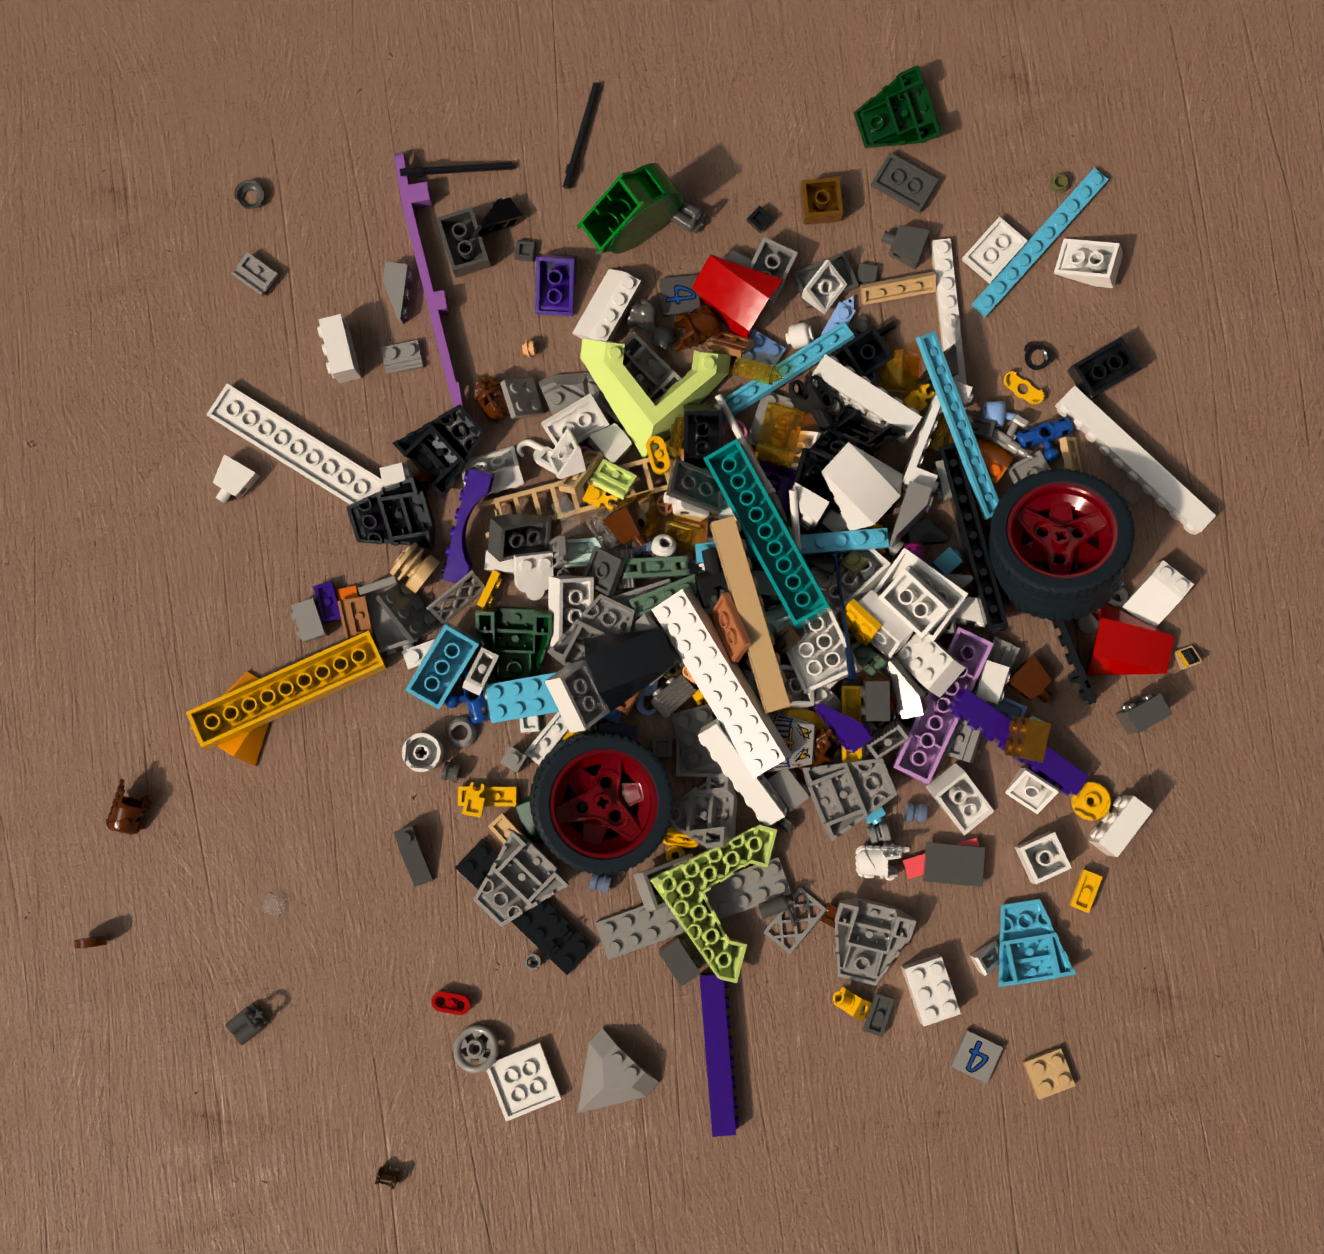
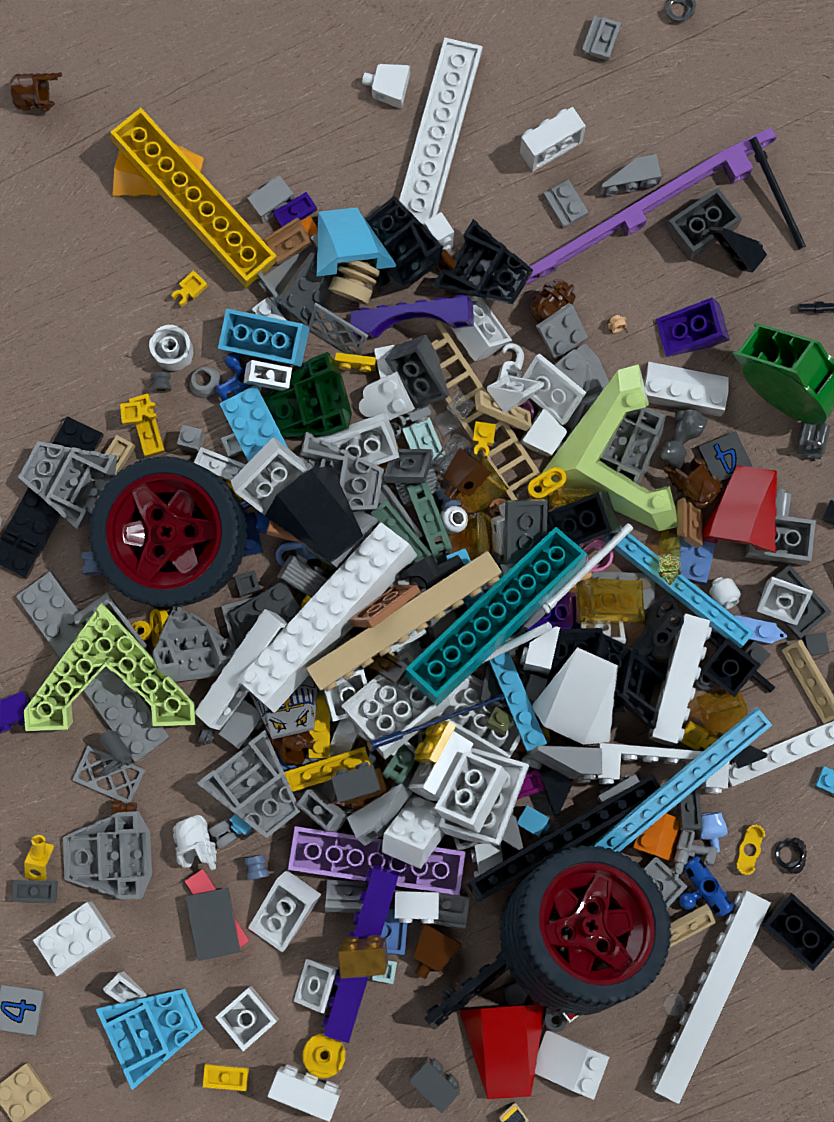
camera: 75 degrees right, 5 degrees down
(369, 717) = (191, 286): none -> yellow plate
(376, 562) = (347, 238): none -> medium azure wedge
(413, 855) = (68, 371): dark grey slope -> none
(525, 250) = (718, 288): dark grey tile -> none
(613, 479) = (506, 445): yellowish green plate -> none
(679, 960) = (32, 666): dark grey brick -> none
(847, 730) = (317, 762): dark purple slope -> none
(938, 434) = (661, 771): clear yellow plate -> none

